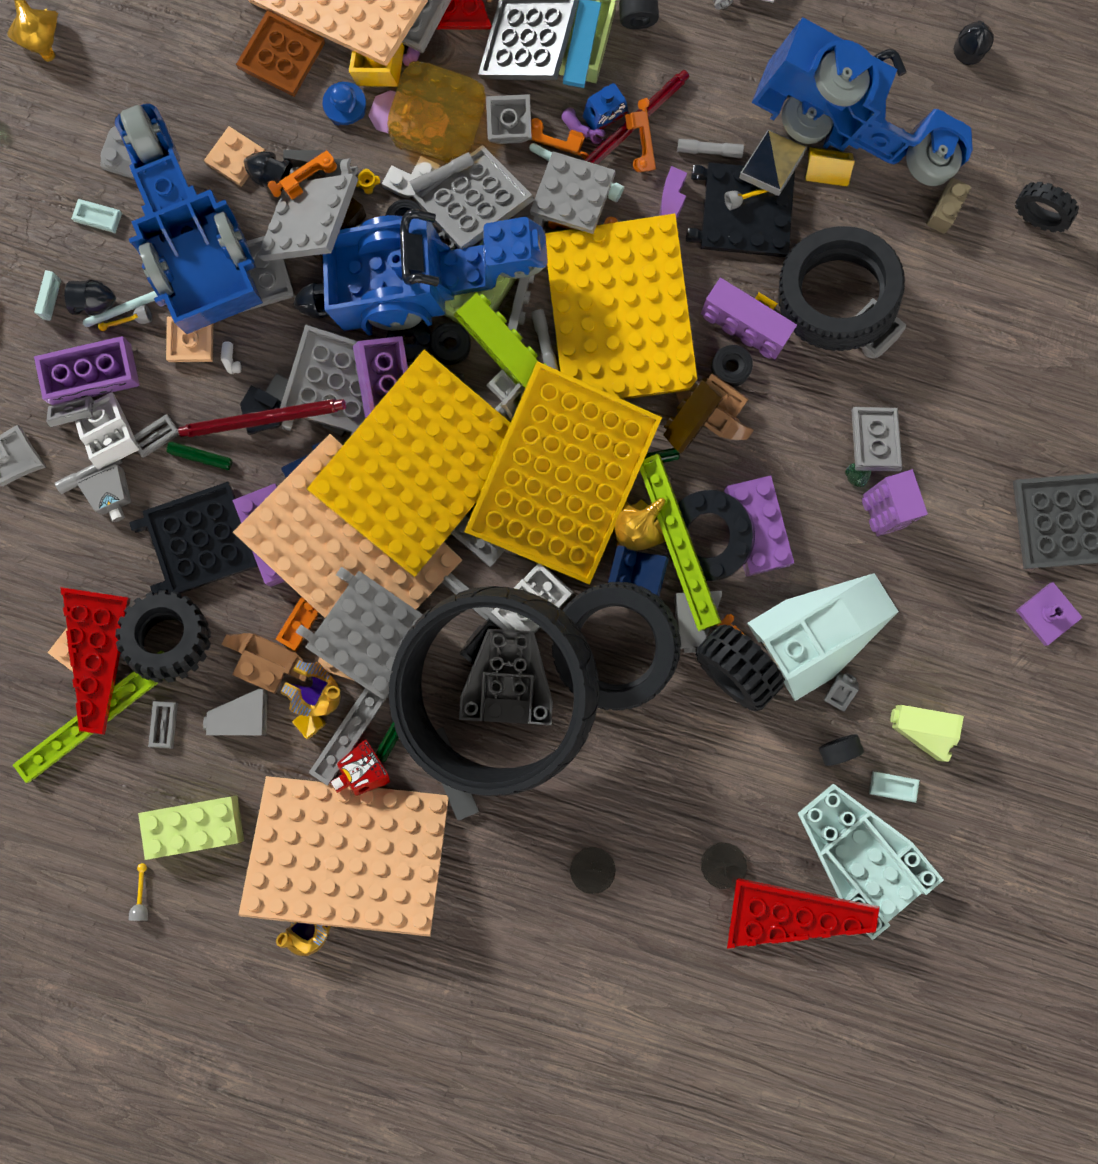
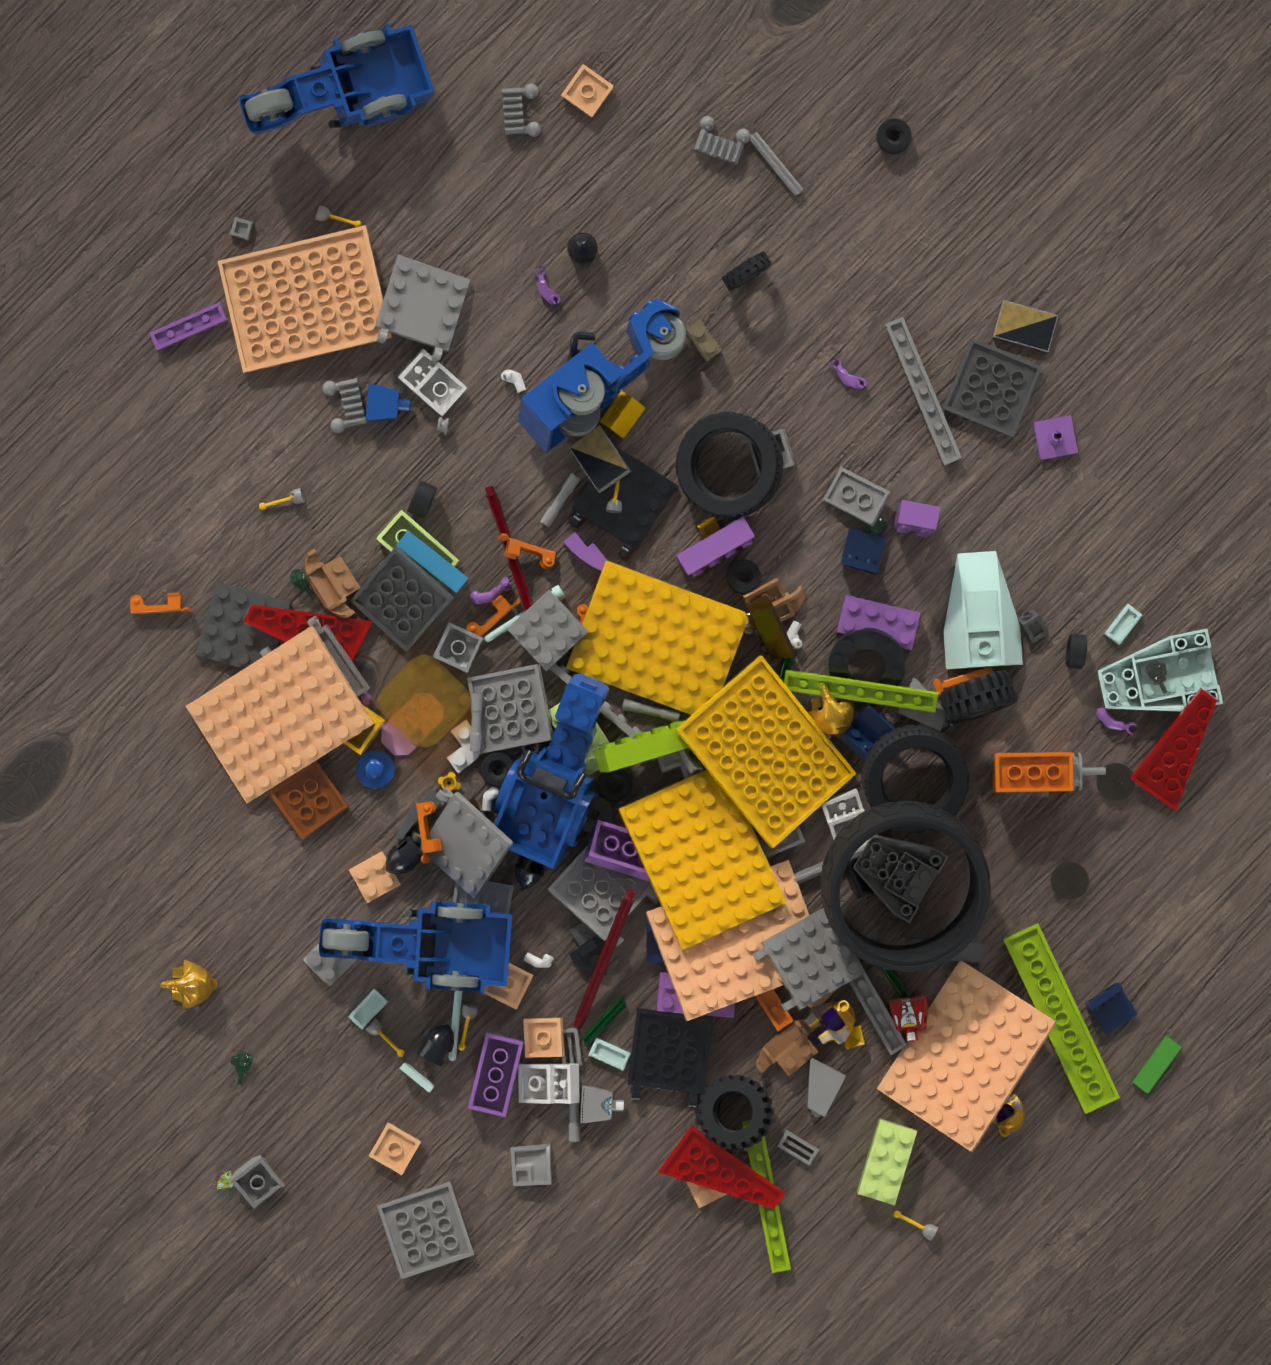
camera: 60 degrees left, 5 degrees up
(70, 411) = (521, 1104): light grey tile -> none
(79, 231) = (375, 1028): none -> hinge
(150, 401) = (543, 1037): none -> light nougat plate
(167, 478) = (609, 1054): none -> light aqua tile
(442, 1070) = (1156, 1064): none -> bright green tile
(453, 923) = (1070, 1034): none -> lime plate
(478, 988) = (1111, 1008): none -> dark blue bracket
(607, 106) = (488, 567): blue torso -> none
(694, 776) = (1039, 772): none -> orange piece
(697, 447) = (793, 636): none -> white arm
(784, 827) = (1111, 723): none -> medium lavender arm
(823, 474) = (863, 551): none -> dark blue bracket
(864, 850) = (1157, 673): none -> clear smoke piece
(909, 31) = (544, 291): none -> medium lavender arm
(928, 729) = (1092, 578): yellowish green slope -> none
(989, 372) = (847, 379): none -> medium lavender arm
(1020, 452) = (923, 391): none -> light grey plate

